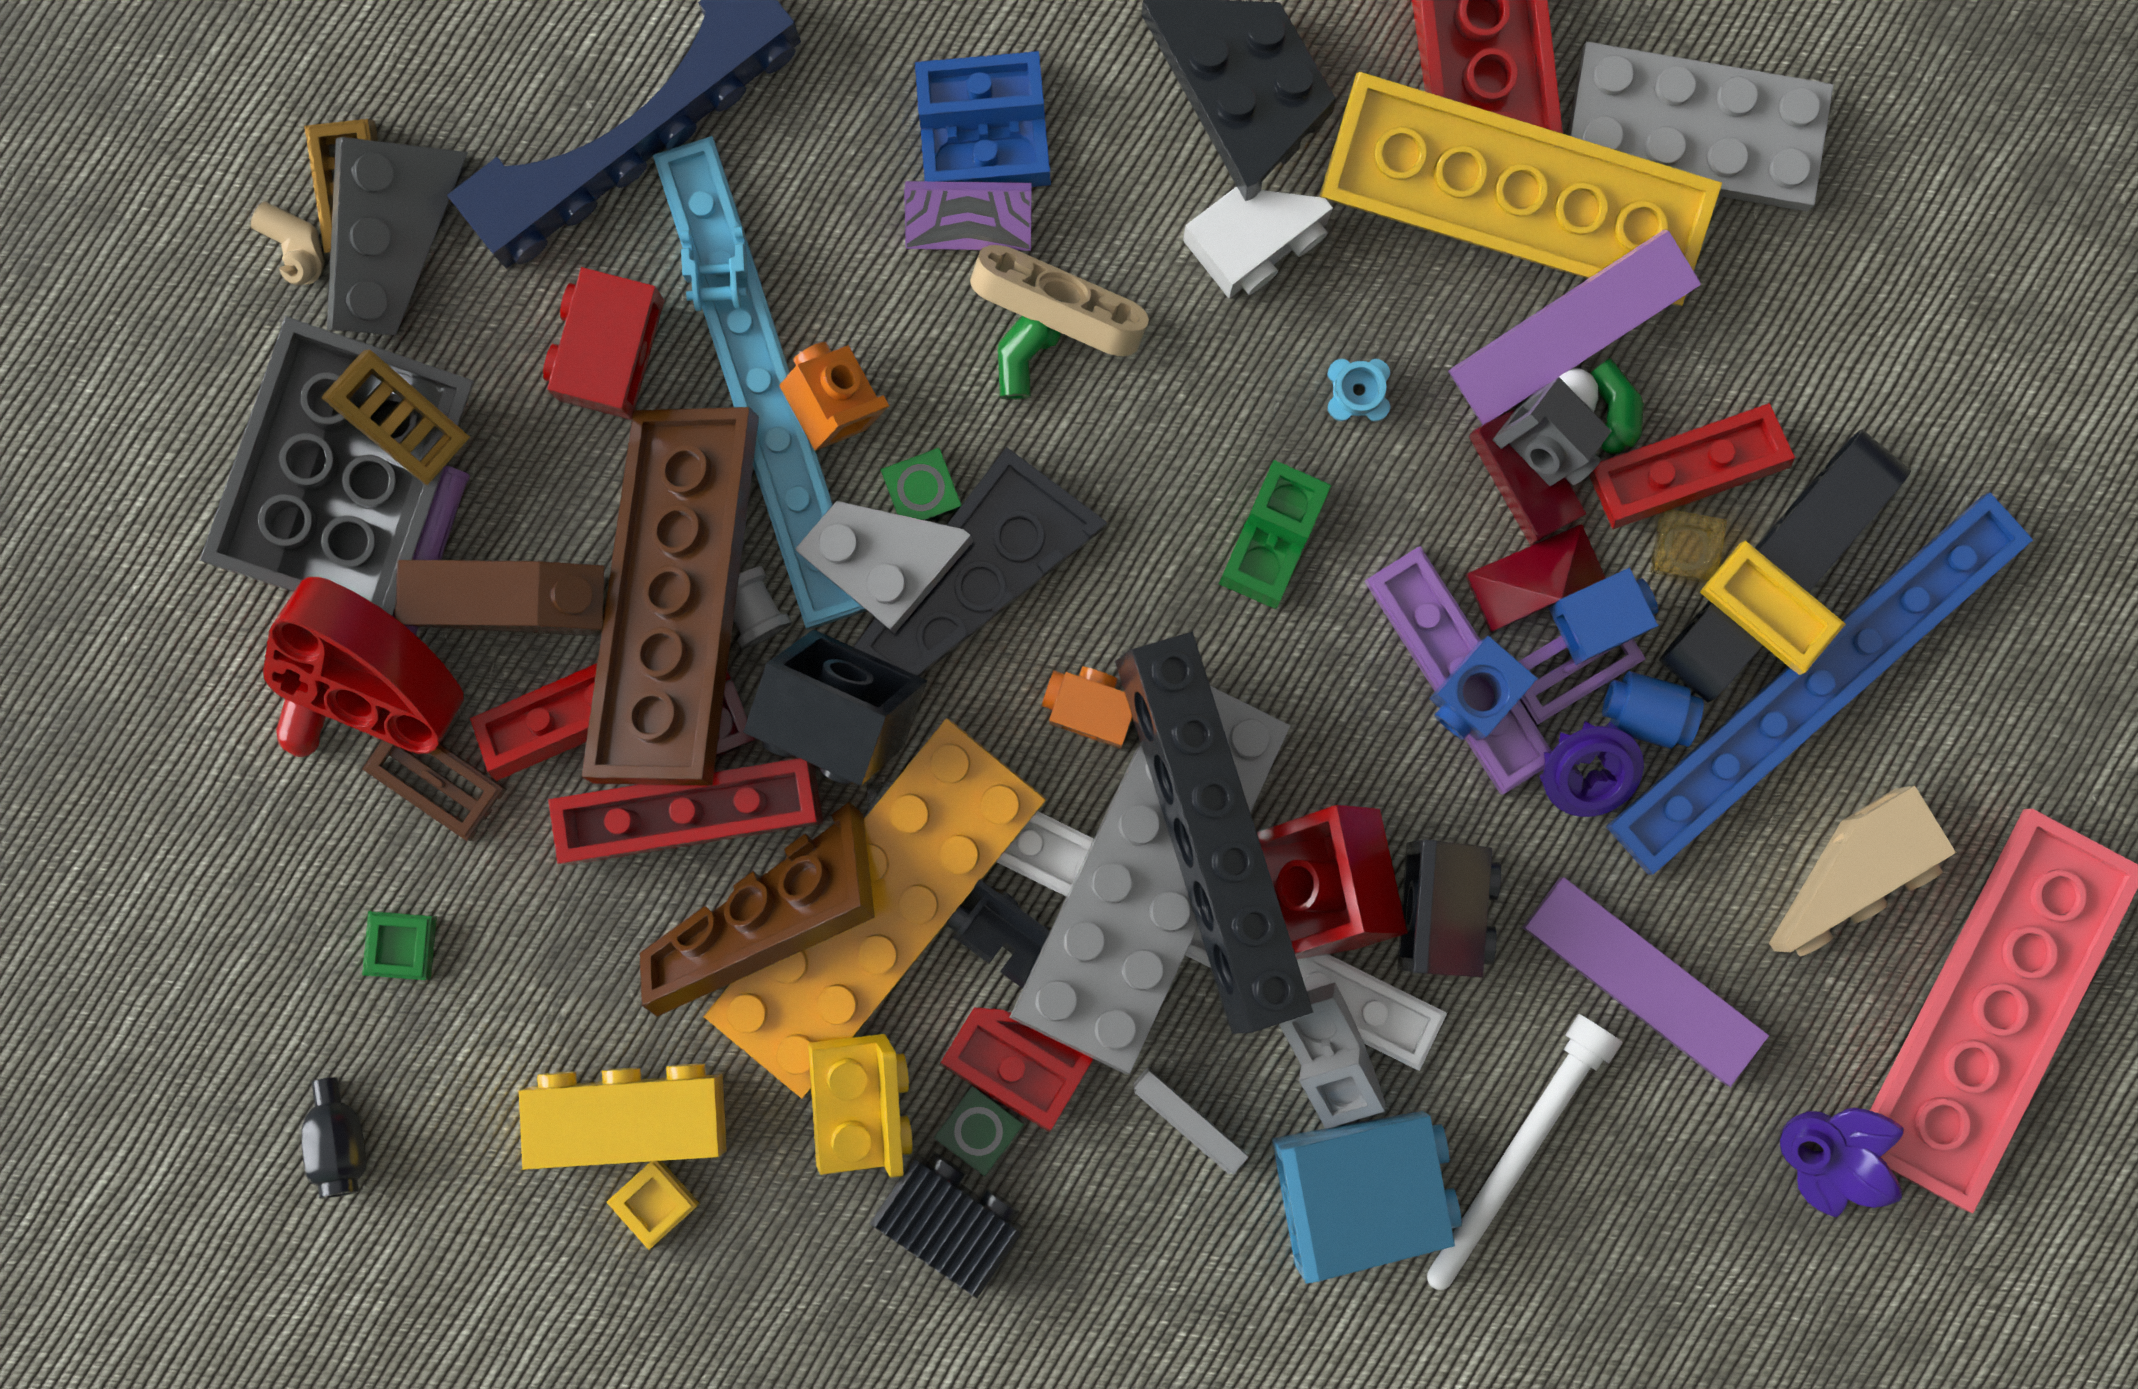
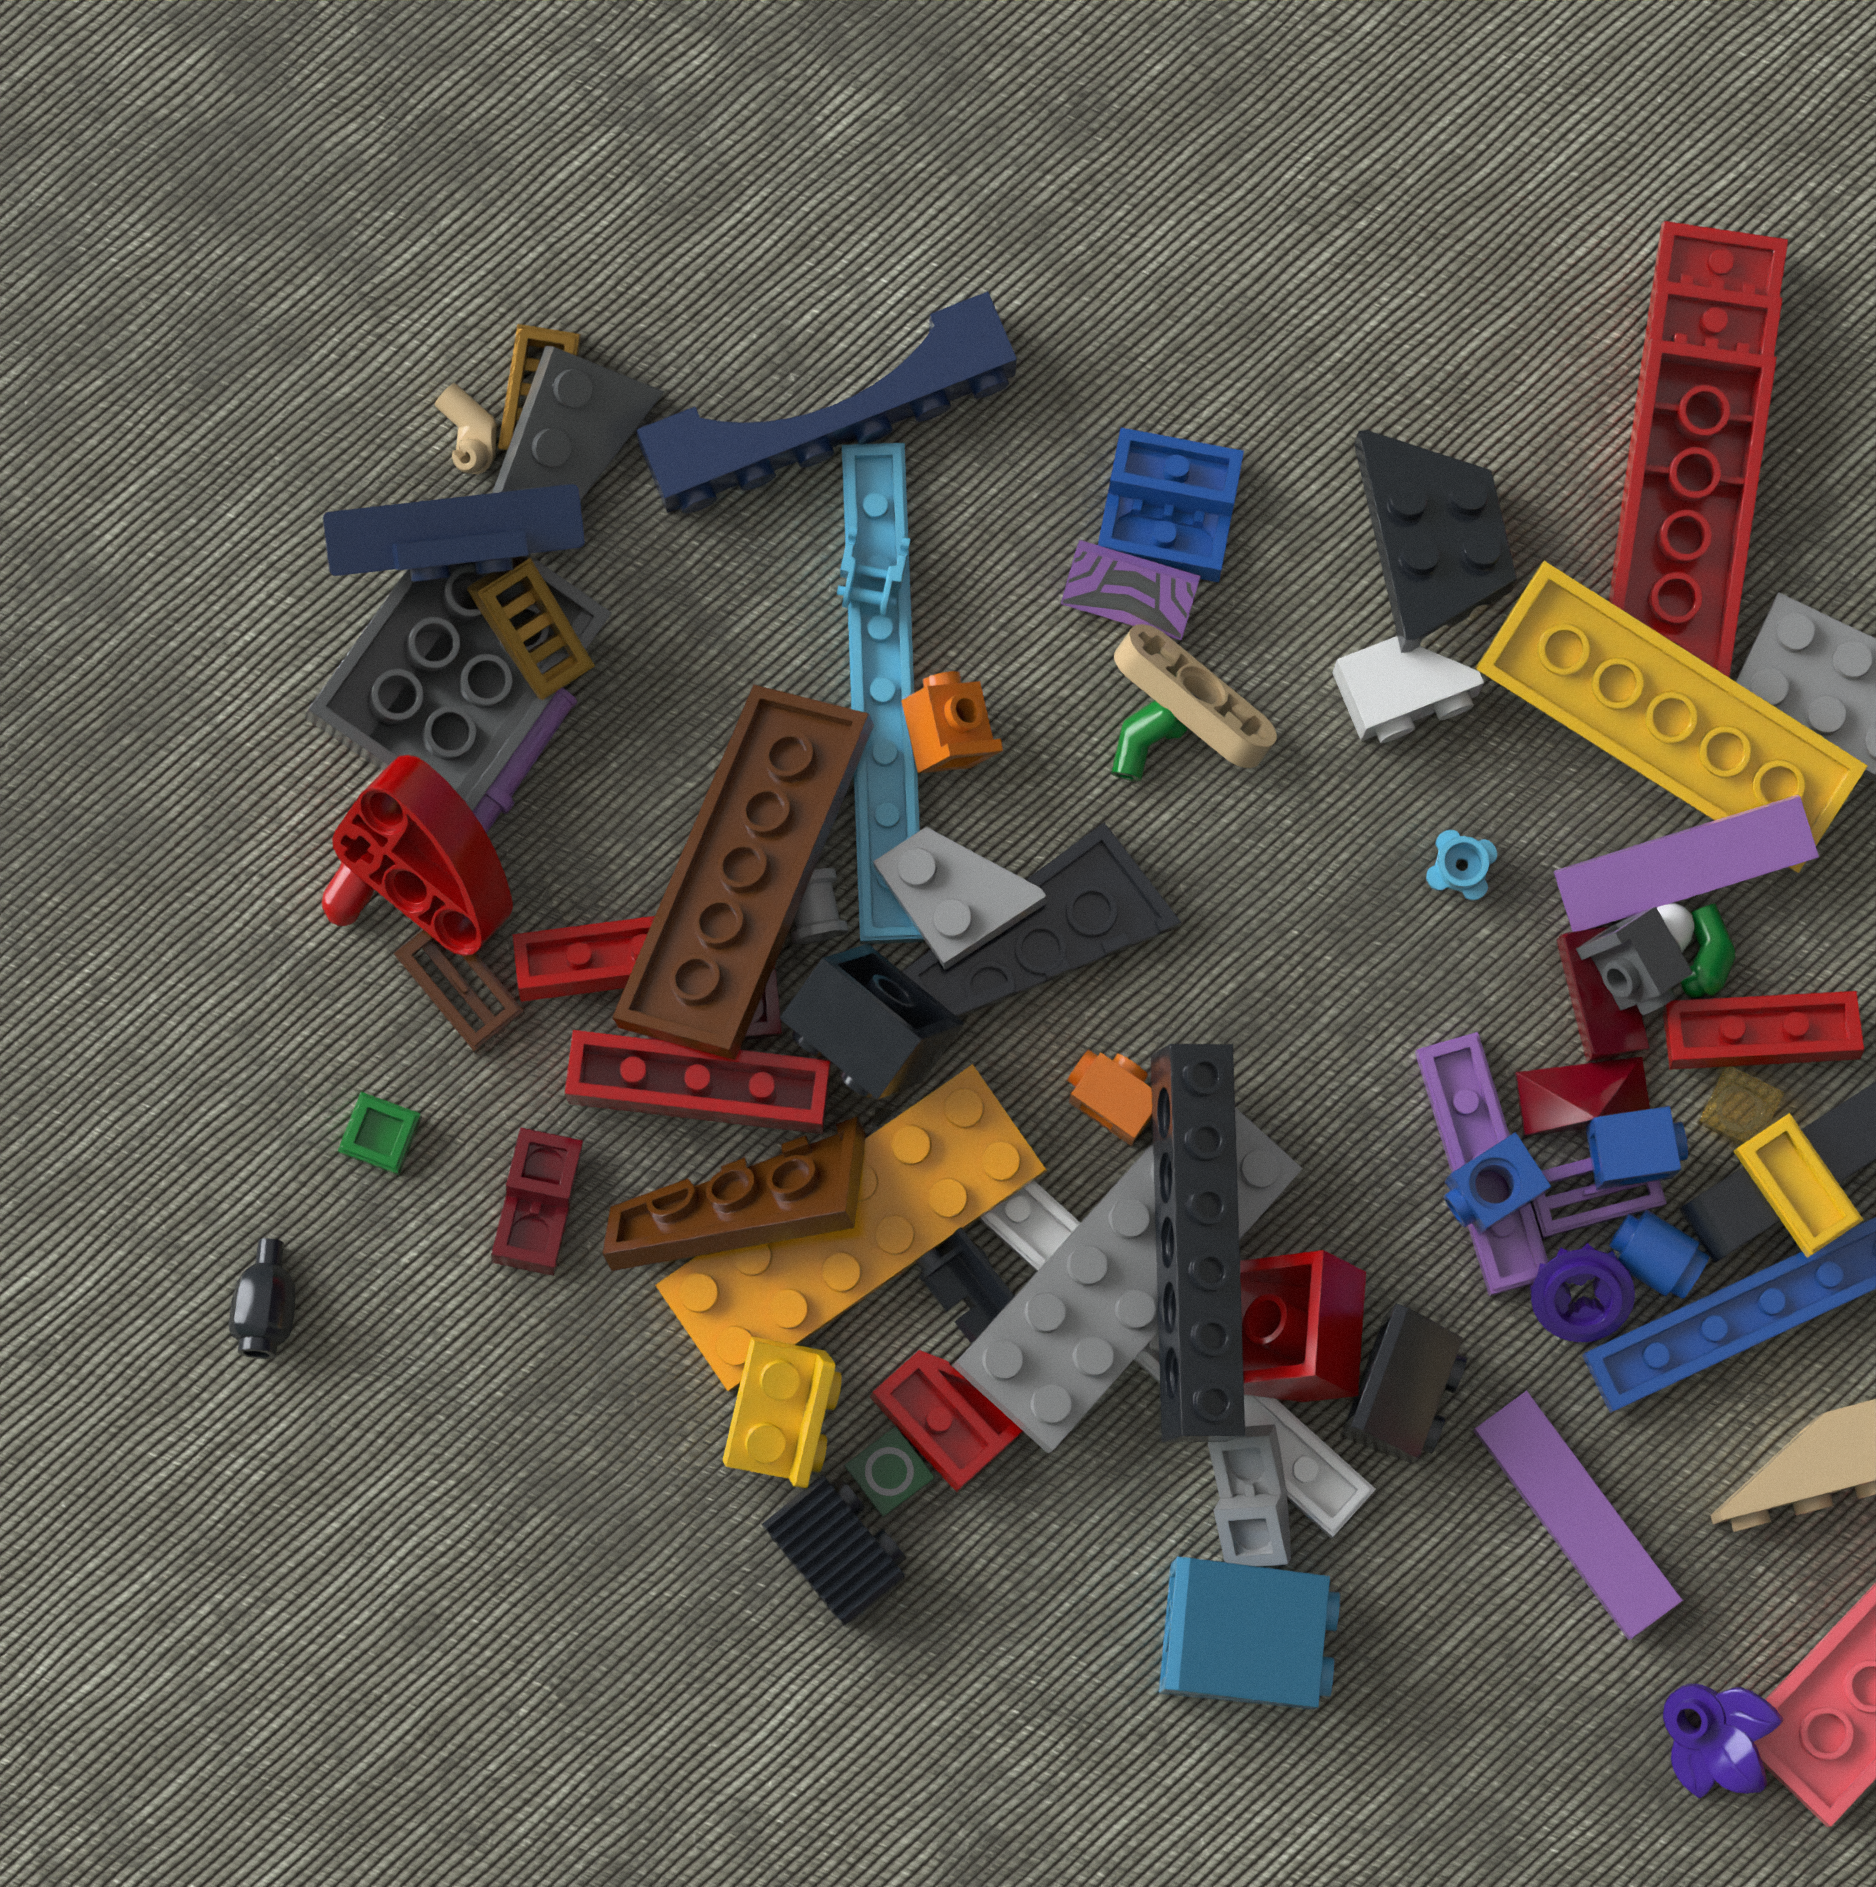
camera: 10 degrees right, 5 degrees down
(288, 343) = (454, 531): none -> dark blue bracket
(501, 596) = (581, 826): reddish brown slope -> none
(568, 967) = (537, 1201): none -> dark red slope
(603, 342) = (745, 612): red brick -> none
(622, 1118) = (551, 1358): yellow brick -> none
(653, 1203) = (554, 1451): yellow tile -> none
(922, 487) = (1011, 837): green tile -> none
(1189, 1121) = (1095, 1519): light grey tile -> none
(1274, 534) = (1340, 981): green slope -> none
(1587, 1049) = (1501, 1563): white piece -> none

